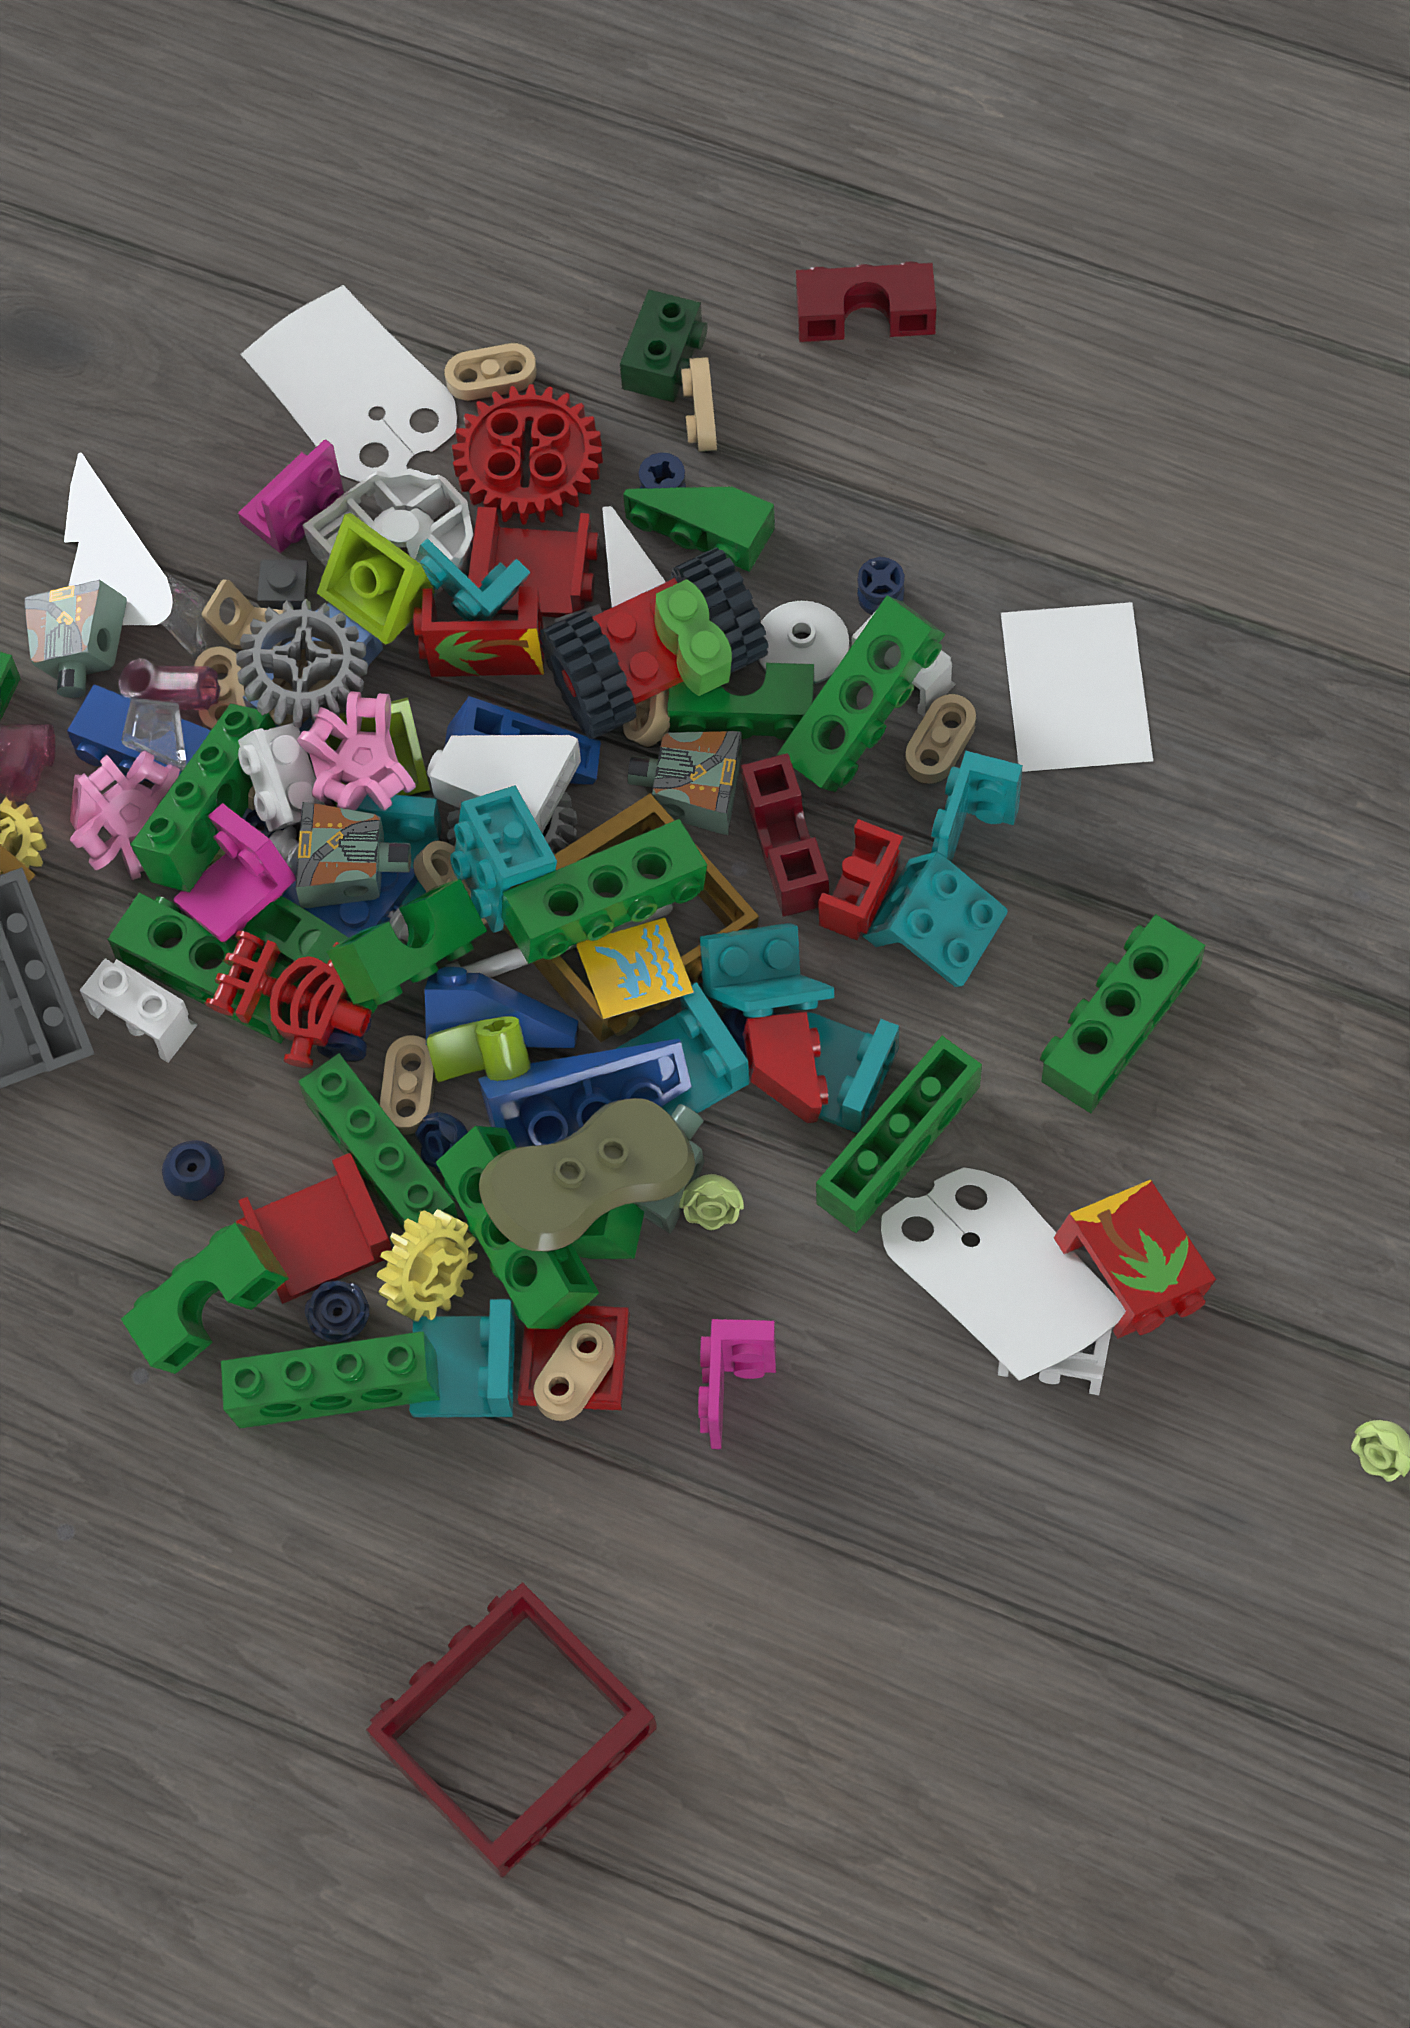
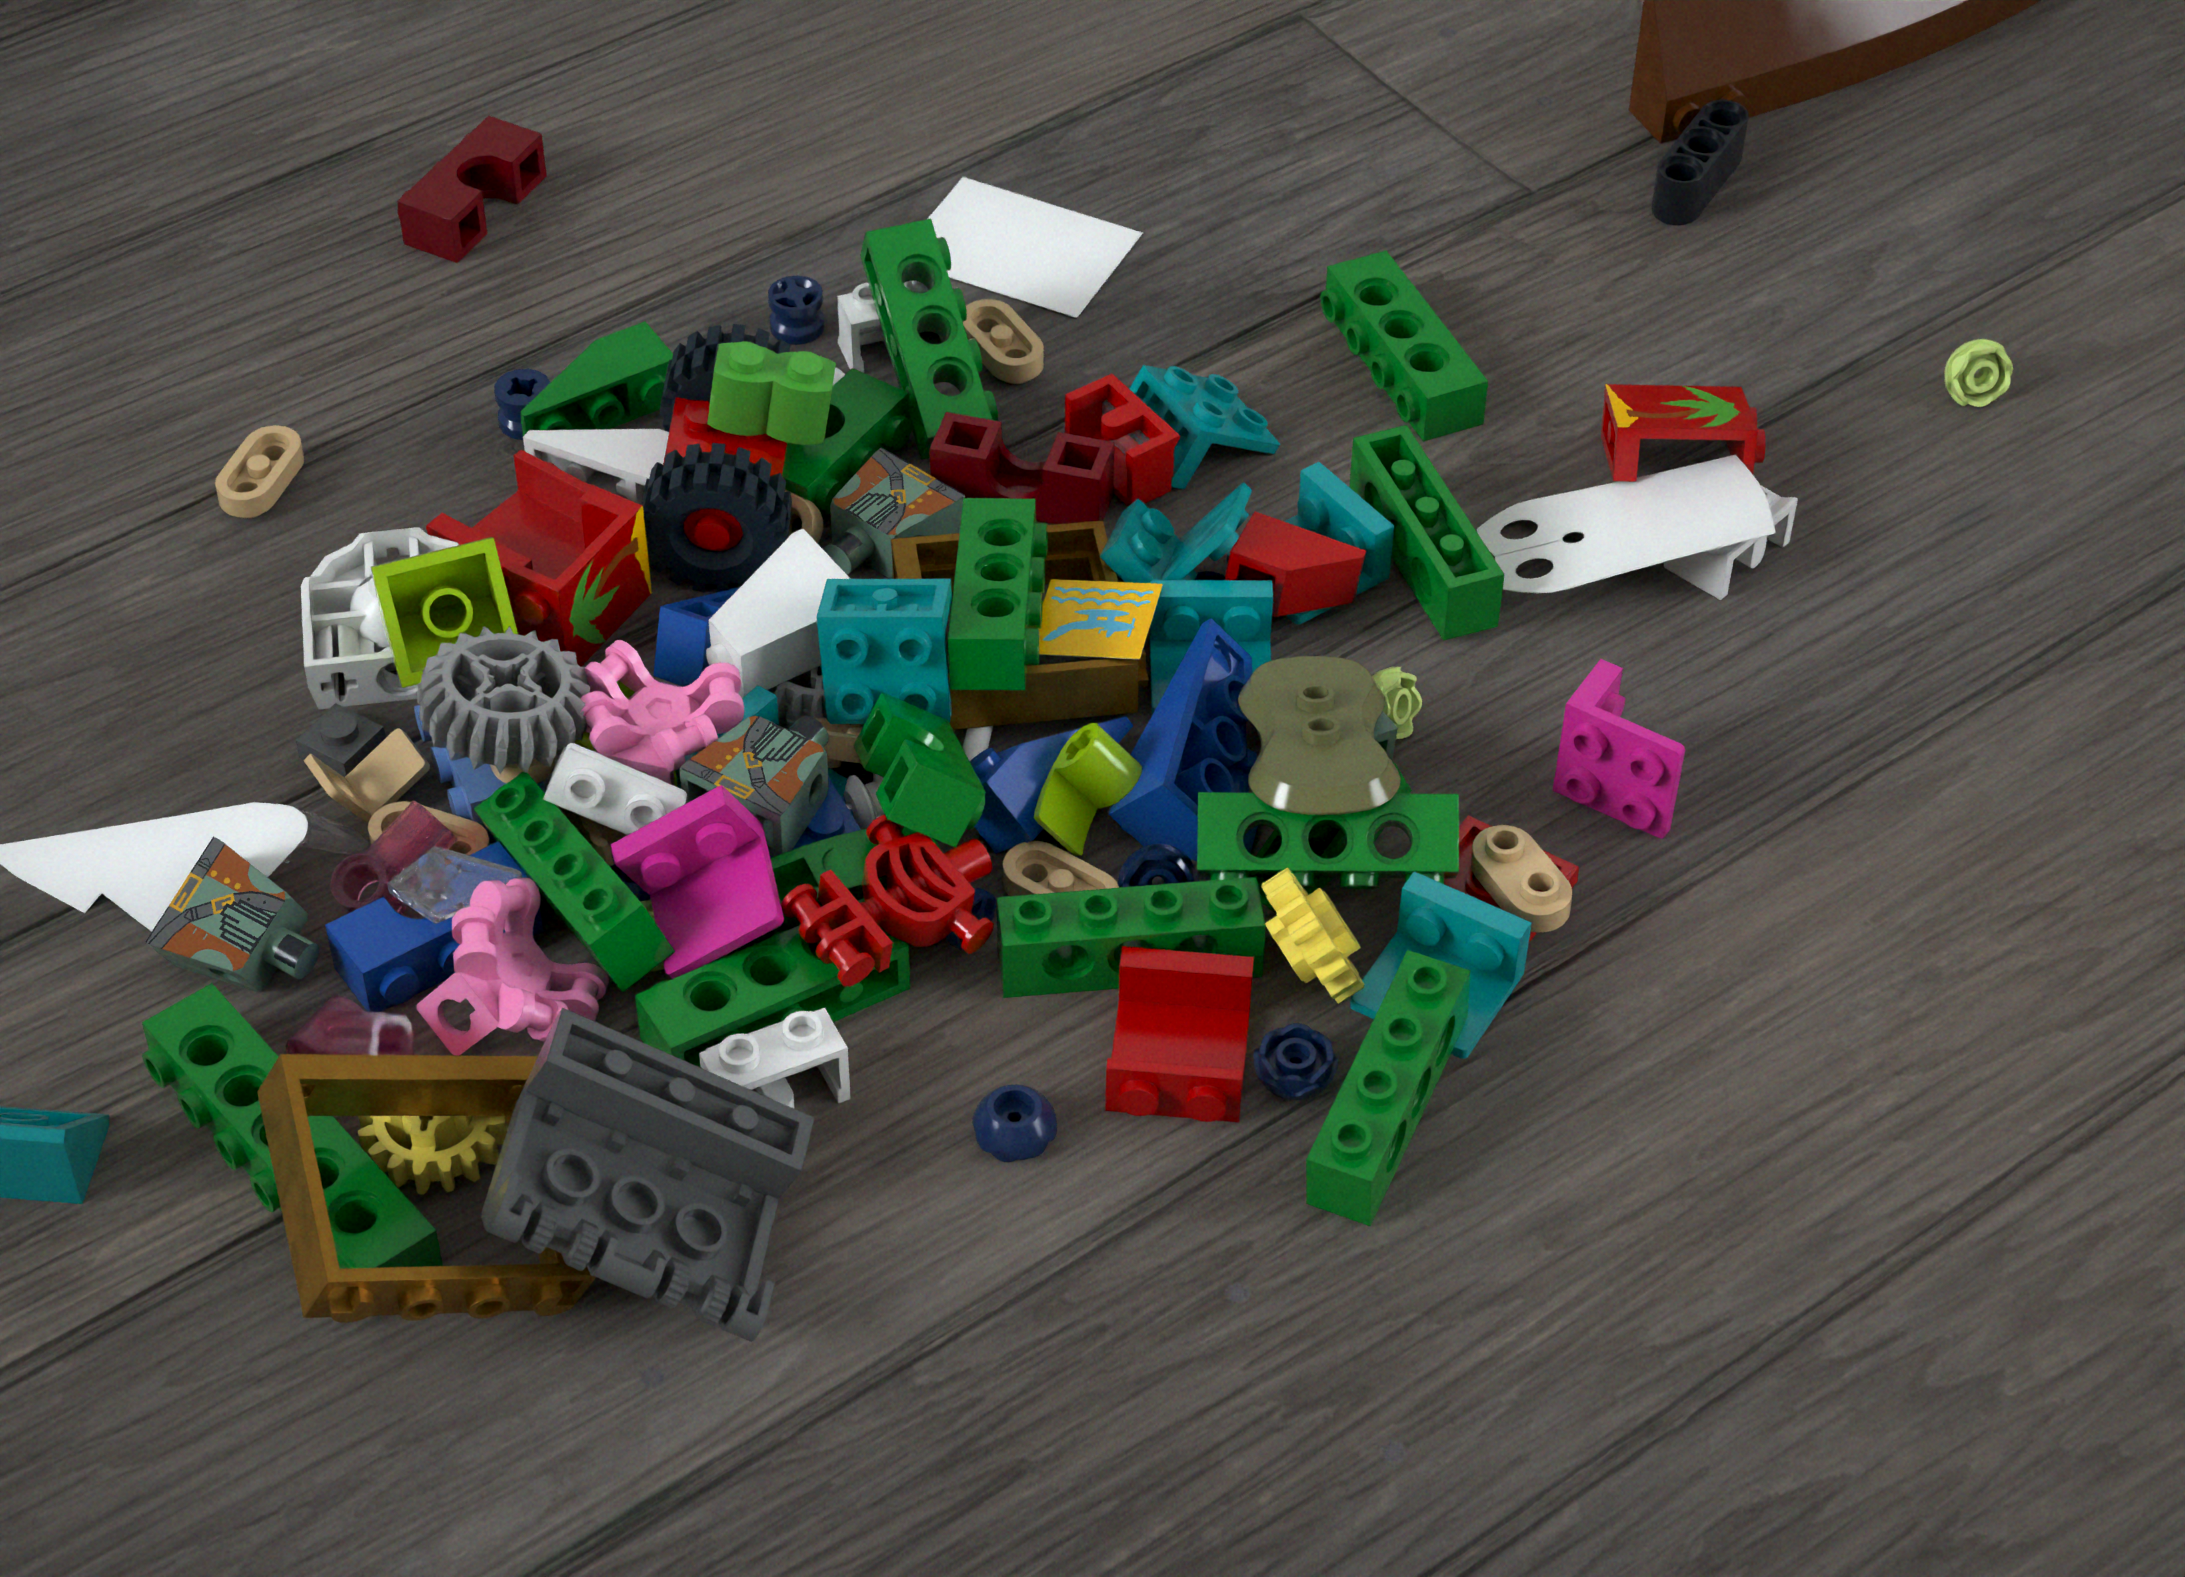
camera: 65 degrees left, 20 degrees down
(169, 1318) = (1210, 1207): green arch -> none
(294, 497) = (245, 679): dark pink bracket -> none
(336, 365) = (141, 594): white piece -> none
(466, 1650) = (1893, 1017): dark red window -> none
(469, 600) = (541, 533): teal bracket -> none
(570, 454) = (387, 477): red gear -> none
(662, 345) = (374, 331): dark green brick -> none
(701, 425) = (474, 328): tan plate -> none
(980, 788) = (1101, 325): teal bracket -> none

